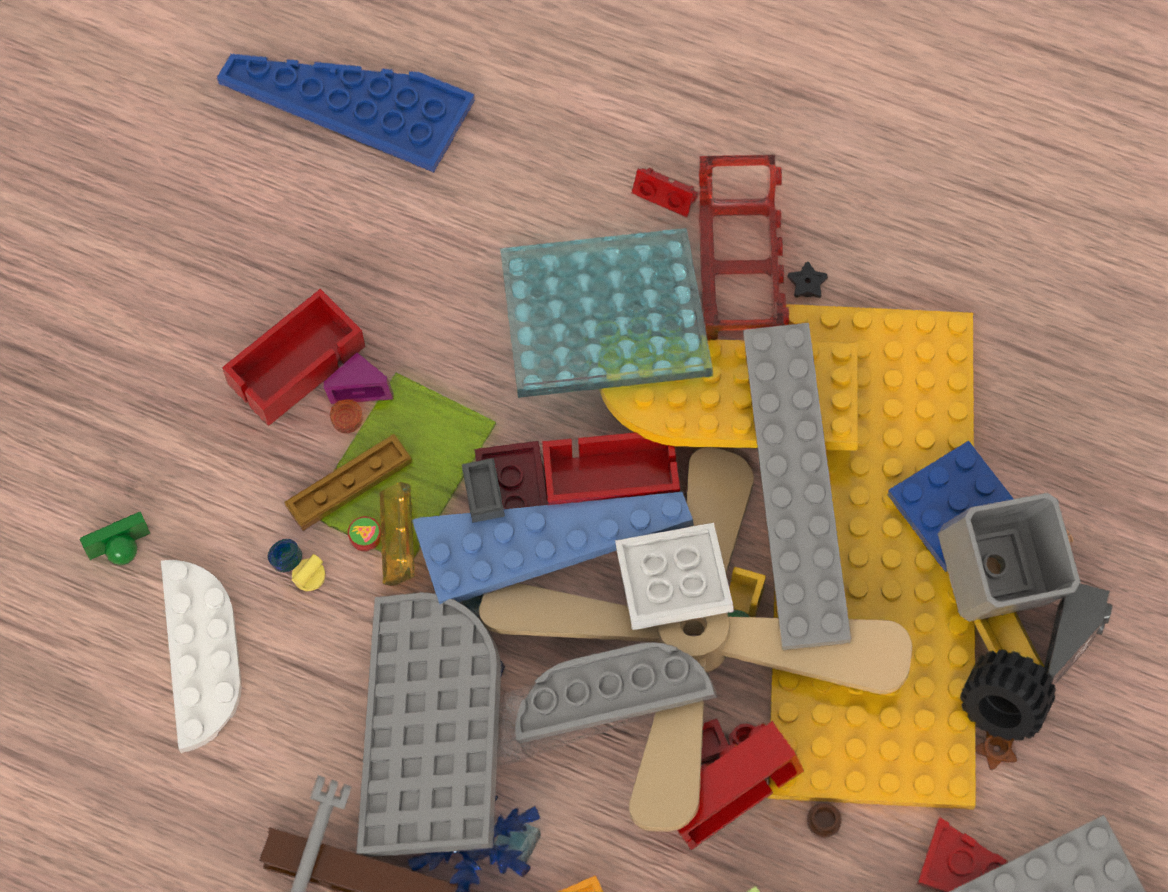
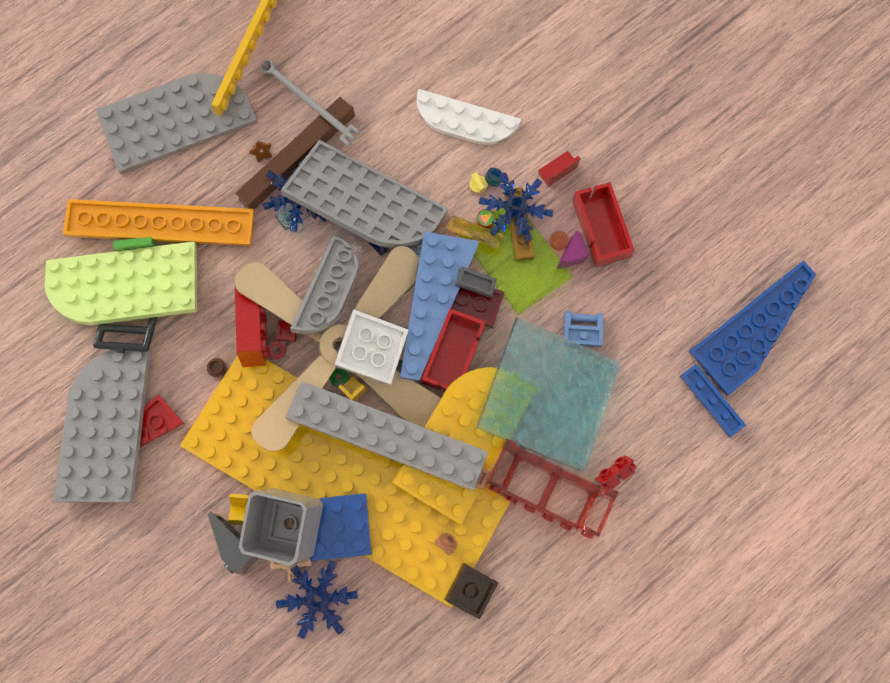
camera: 115 degrees right, 10 degrees up
(116, 539) = (541, 102): green tile -> none
(223, 466) = (558, 168): none -> red panel
(328, 479) = (515, 201): none -> clear blue piece
(483, 316) = (584, 335): none -> medium blue plate
(492, 113) = (712, 400): none -> blue plate
(807, 289) = (518, 518): black plate -> none
(892, 352) = (446, 543): none -> nougat plate
(936, 296) = (471, 591): none -> dark brown tile
(994, 757) = (199, 476): dark orange plate -> none
(1008, 695) = (217, 488): black tyre -> none
(1073, 485) = (317, 606): none -> clear blue piece

